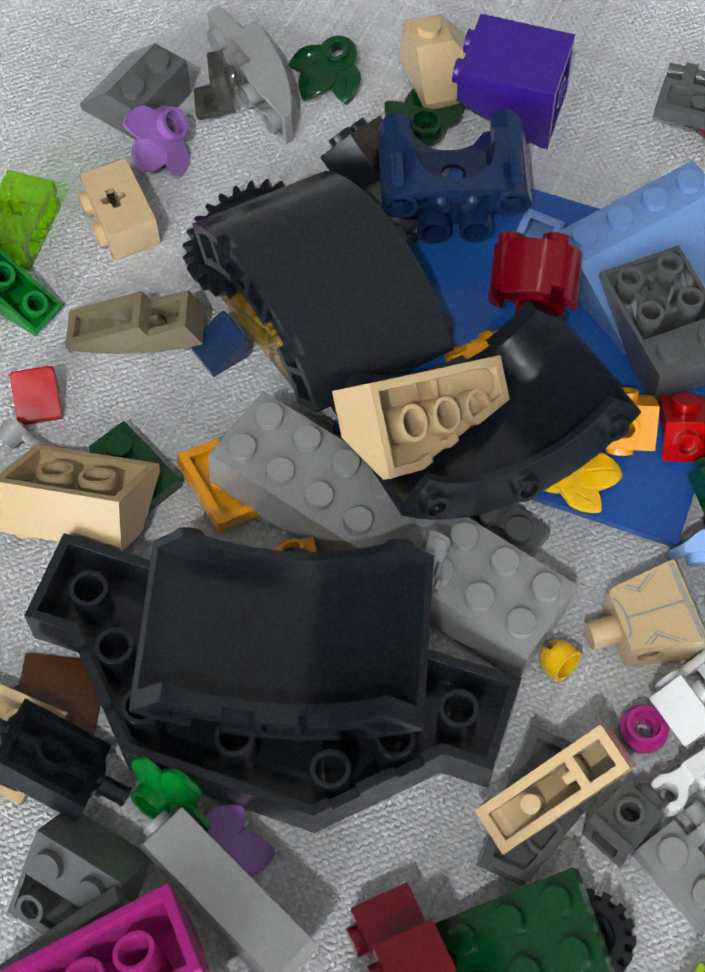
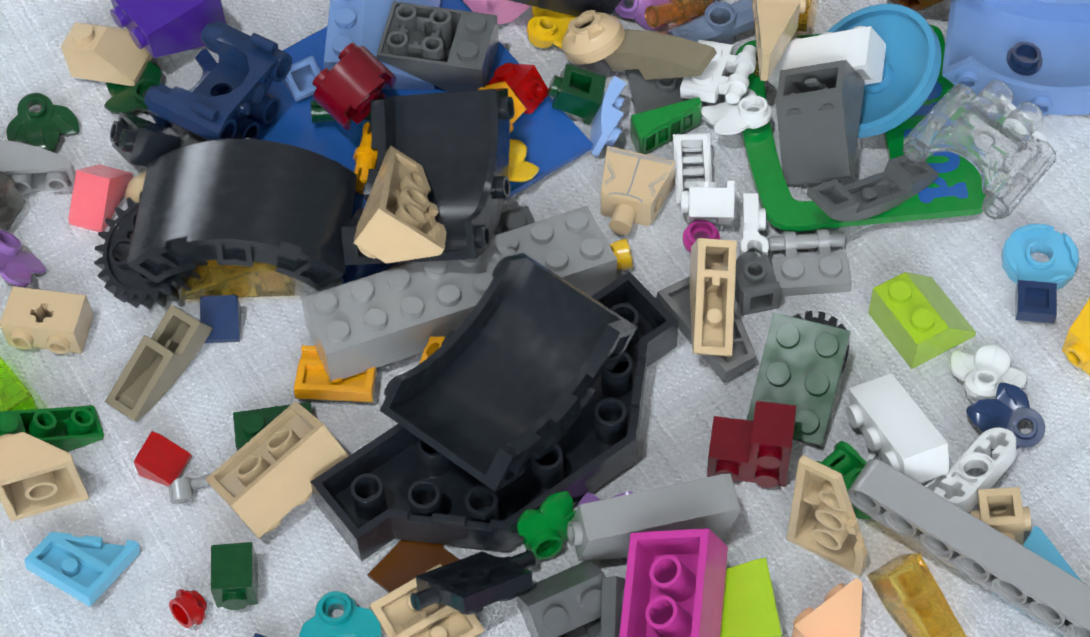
camera: 55 degrees left, 5 degrees down
(284, 156) = (96, 196): none -> coral slope

